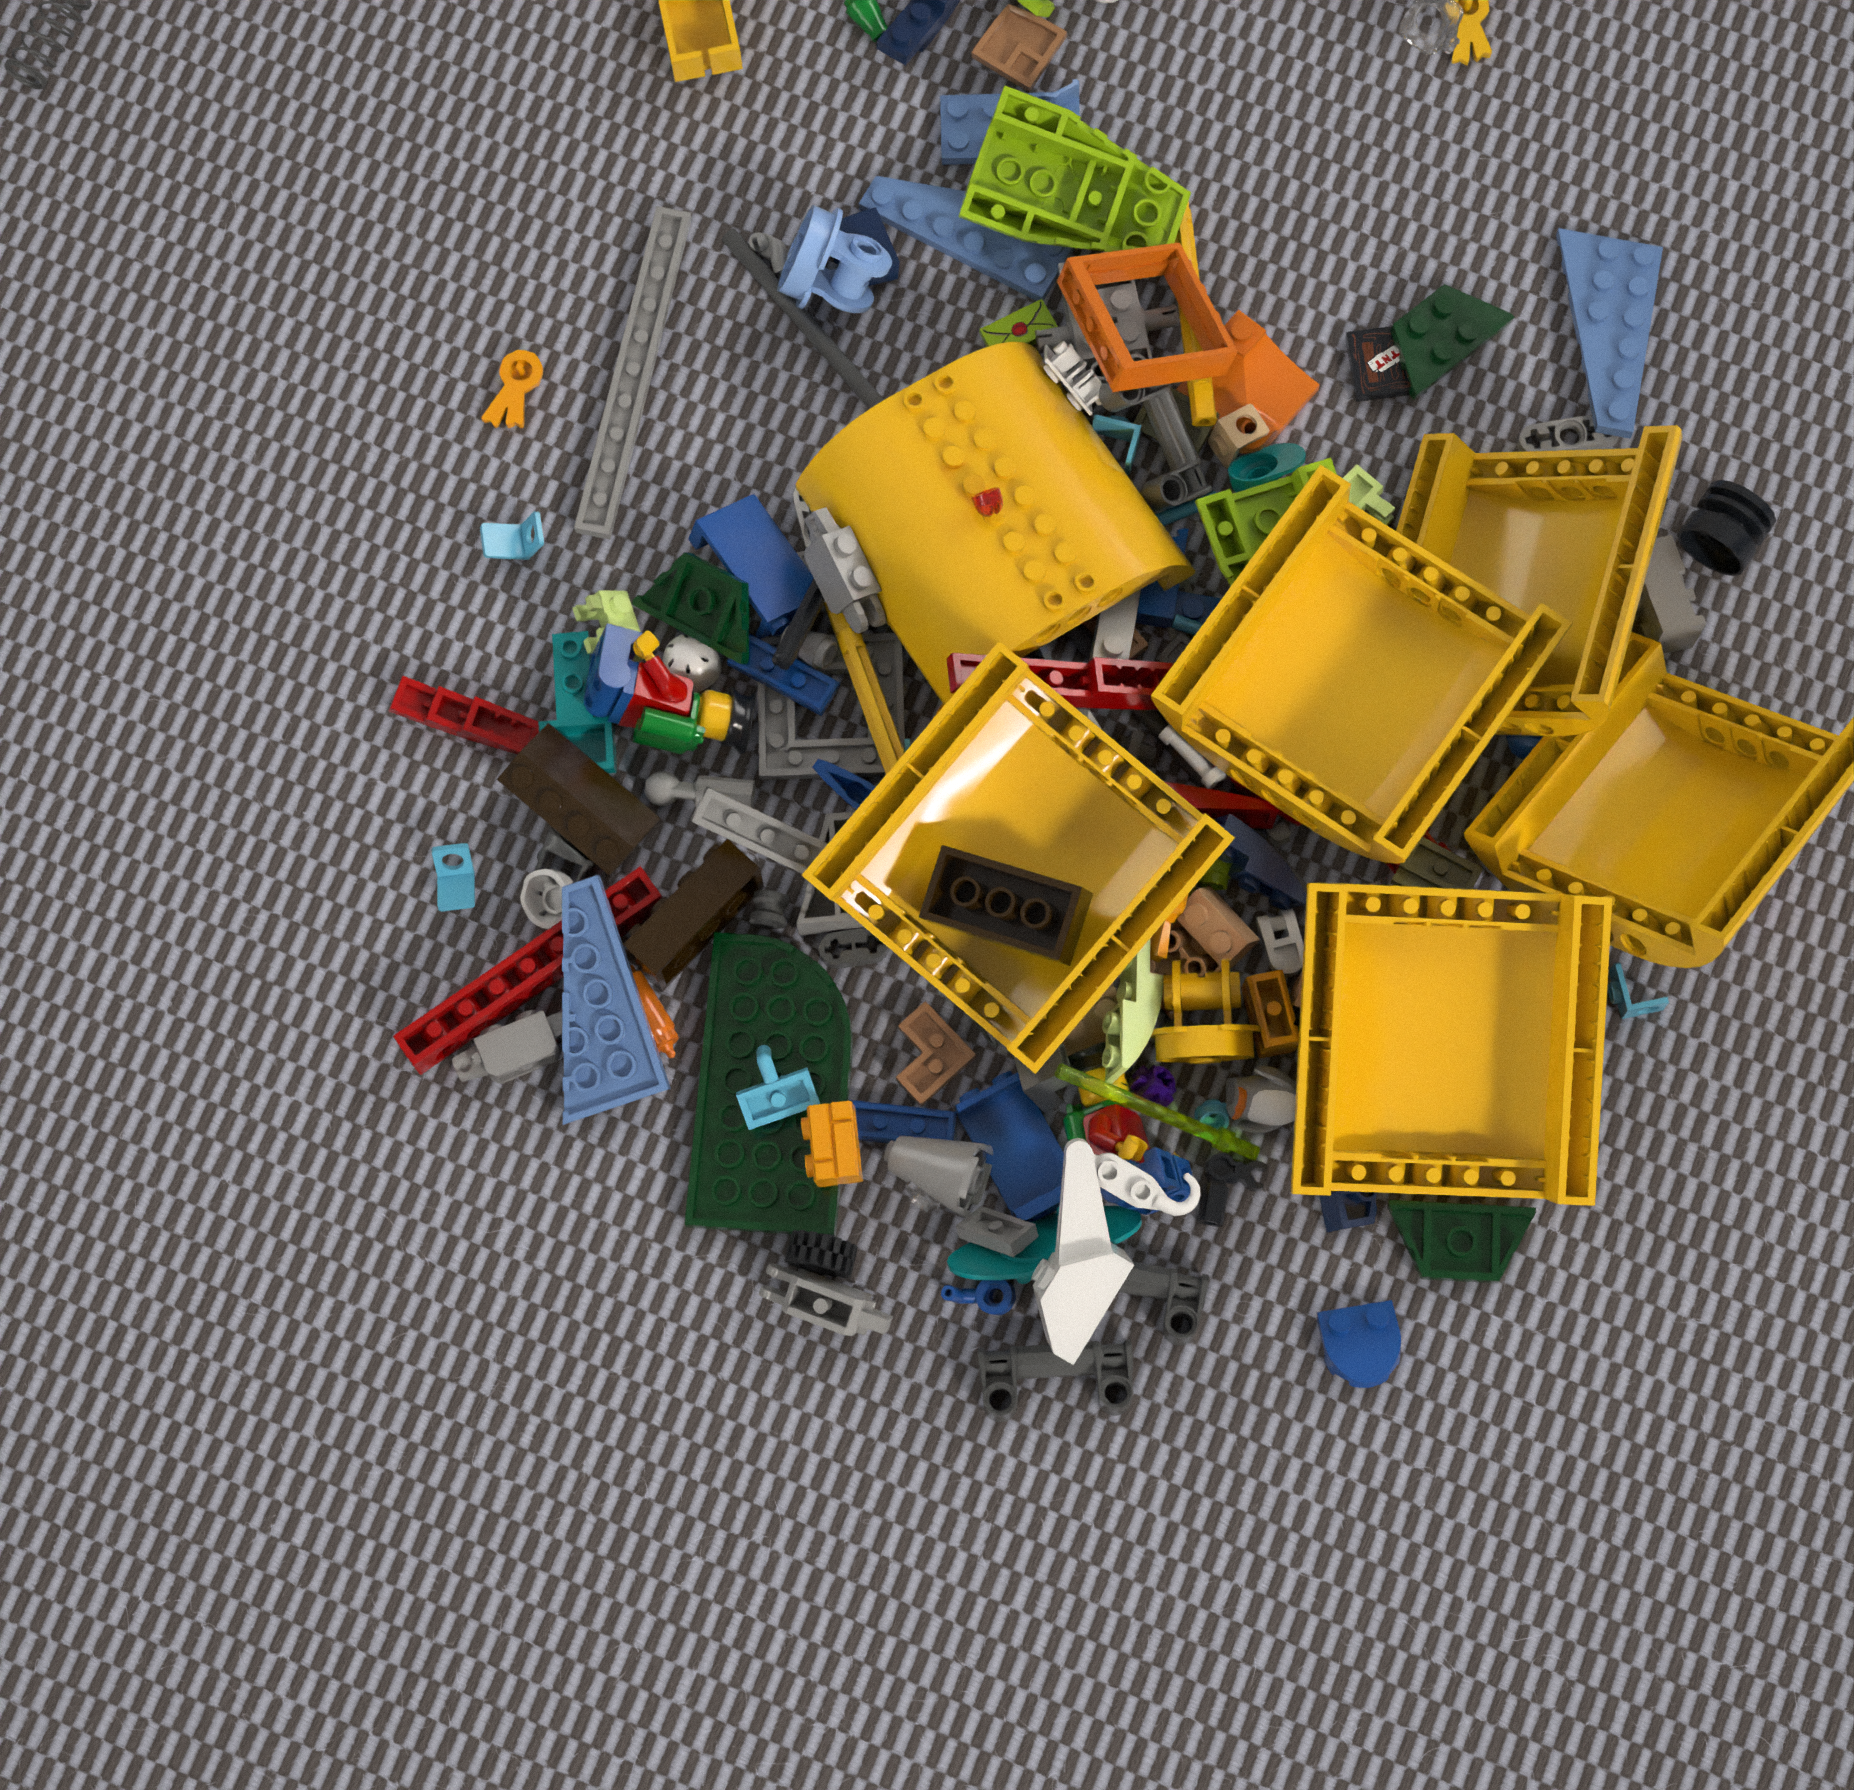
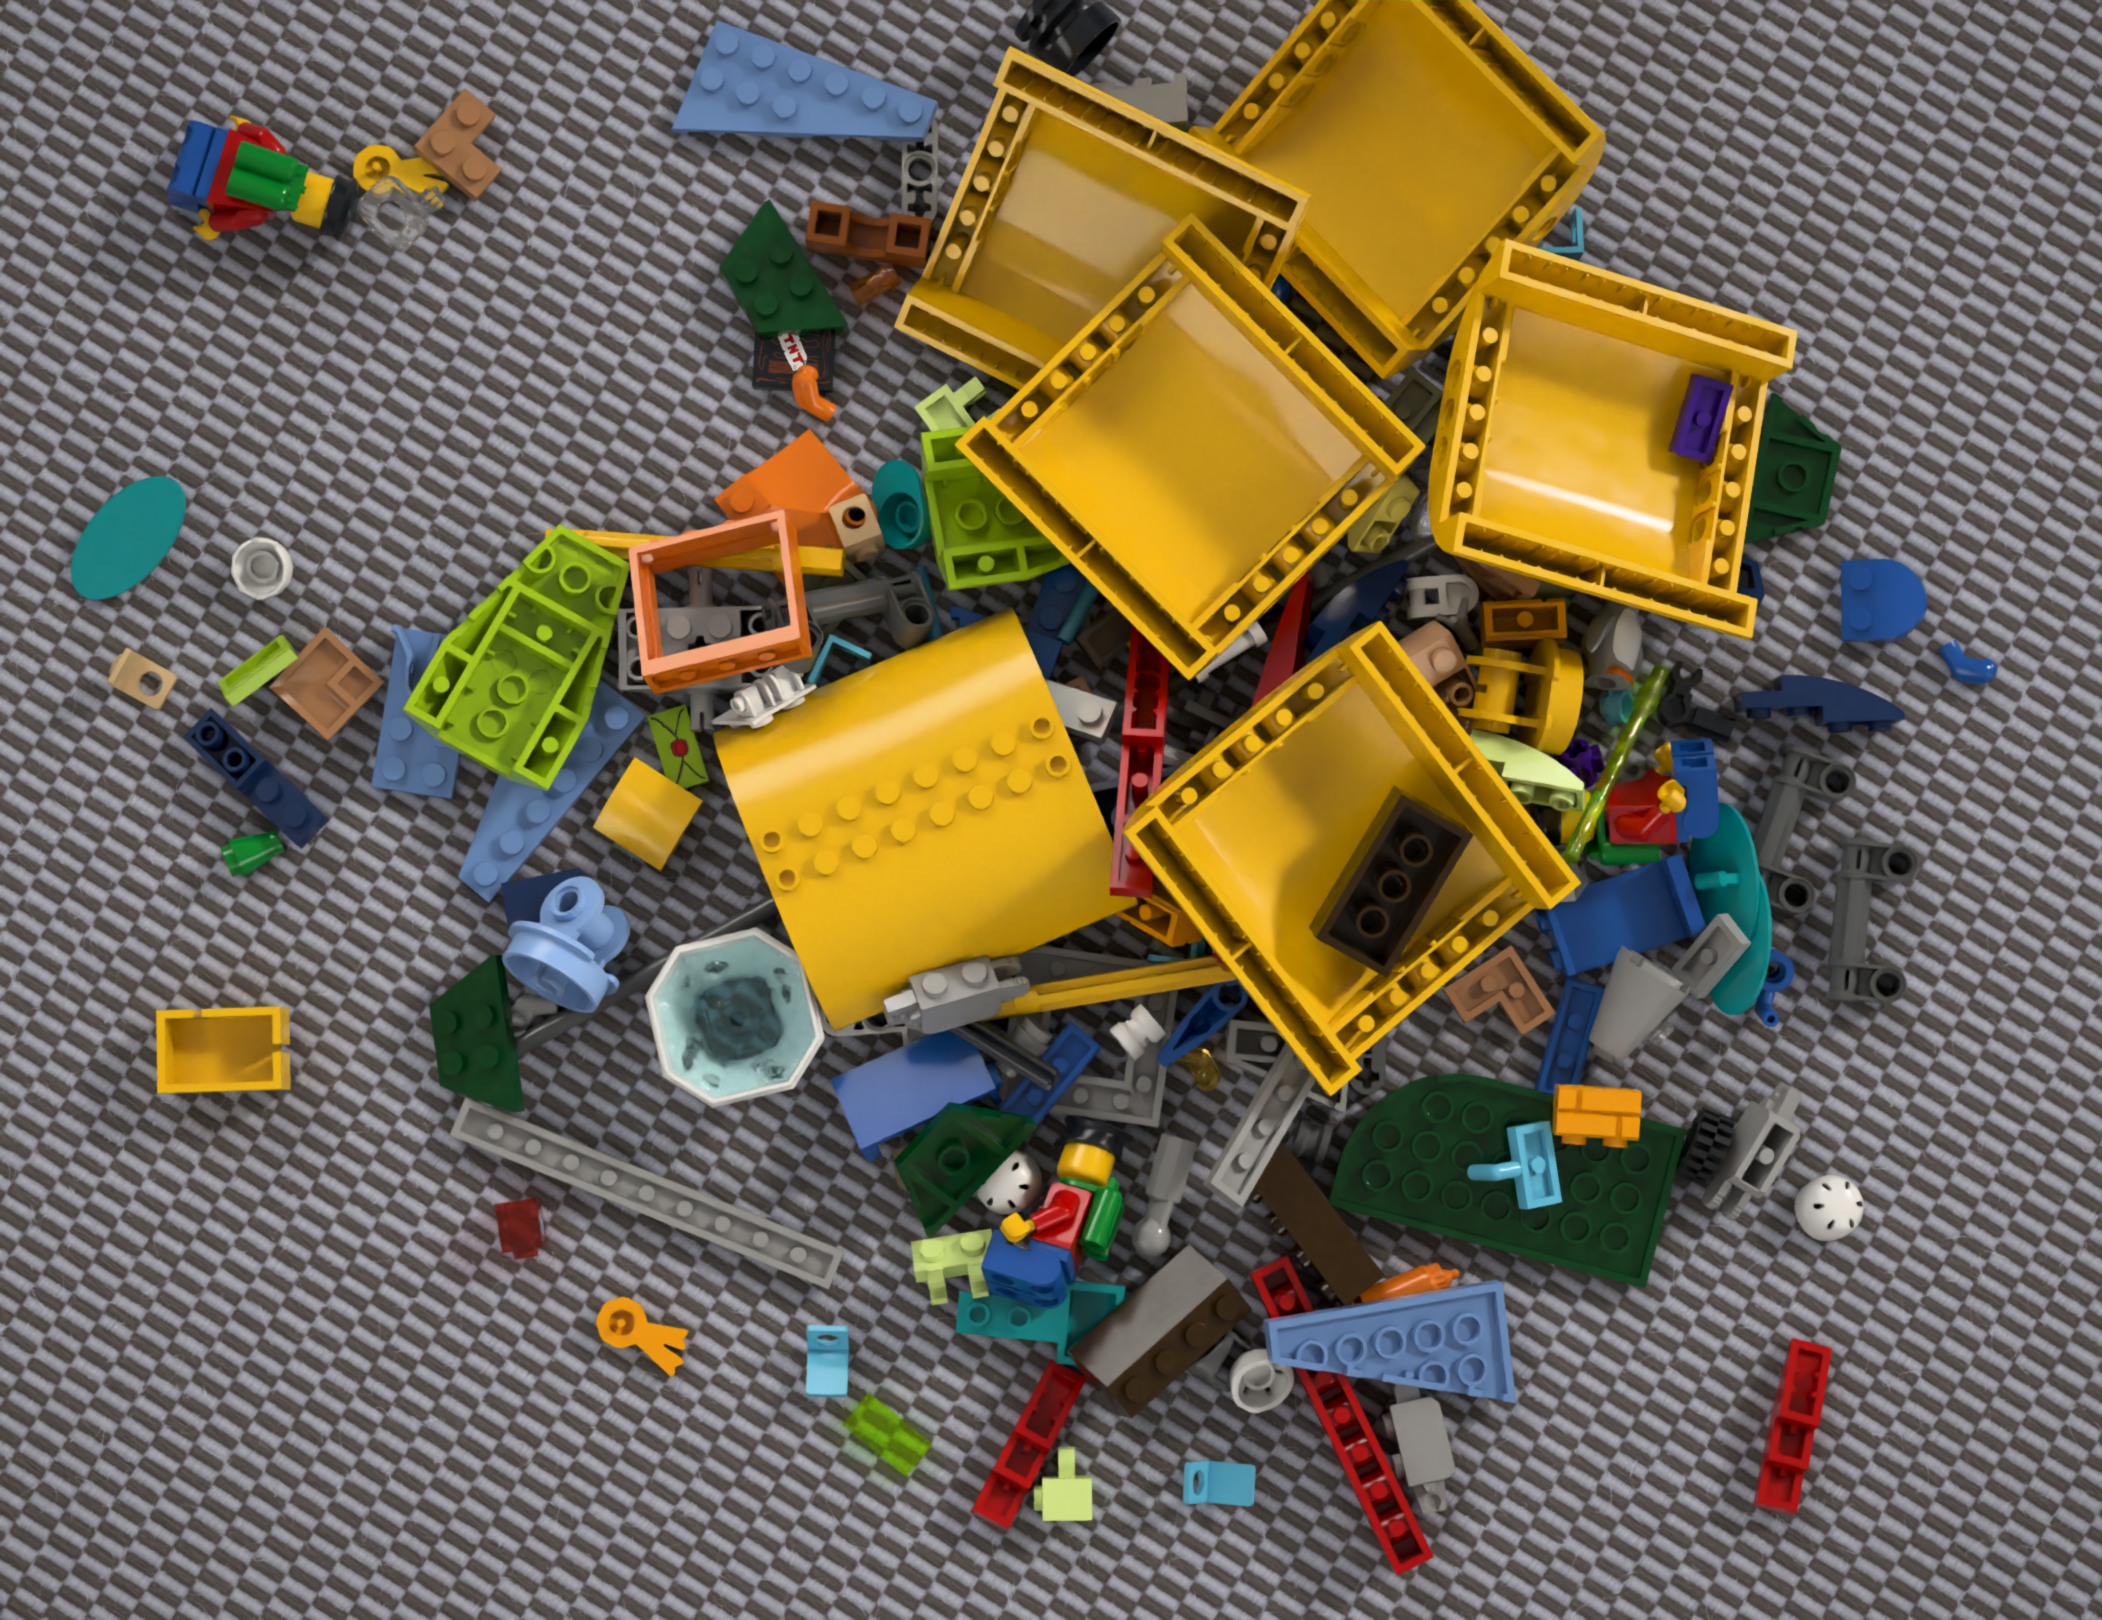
camera: 90 degrees left, 10 degrees up
(426, 753) = (1065, 1495): none -> yellowish green brick
(458, 601) = (887, 1434): none -> clear neon green plate
(579, 1381) = (1792, 1426): none -> red slope
(588, 276) = (521, 1227): none -> clear red brick
(741, 213) = (477, 1038): none -> dark green wing
(783, 375) = (693, 1011): none -> clear light blue rock
(786, 1386) = (1837, 1205): none -> white helmet
(815, 811) = (1202, 1067): none -> clear yellow arm
(838, 738) = (1137, 1032): none -> white wheel
(957, 312) = (647, 814): none -> yellow slope
(988, 502) = (931, 816): clear red hinge -> none
(1086, 1267) = (1785, 866): white slope -> none
(1255, 1314) = (1834, 702): none -> dark blue slope
(1259, 960) = (1461, 626): none -> light grey bar
(1314, 1435) = (1967, 669): none -> blue arm
(1343, 866) = (1377, 526): none -> light yellow slope
(1348, 375) = (807, 395): none -> orange arm
(1459, 416) = (874, 284): none -> clear orange pin
(1494, 1138) = (1700, 418): none -> dark purple plate
(1498, 383) = (892, 240): none -> dark orange arch
(1500, 56) = (451, 149): none -> medium nougat plate

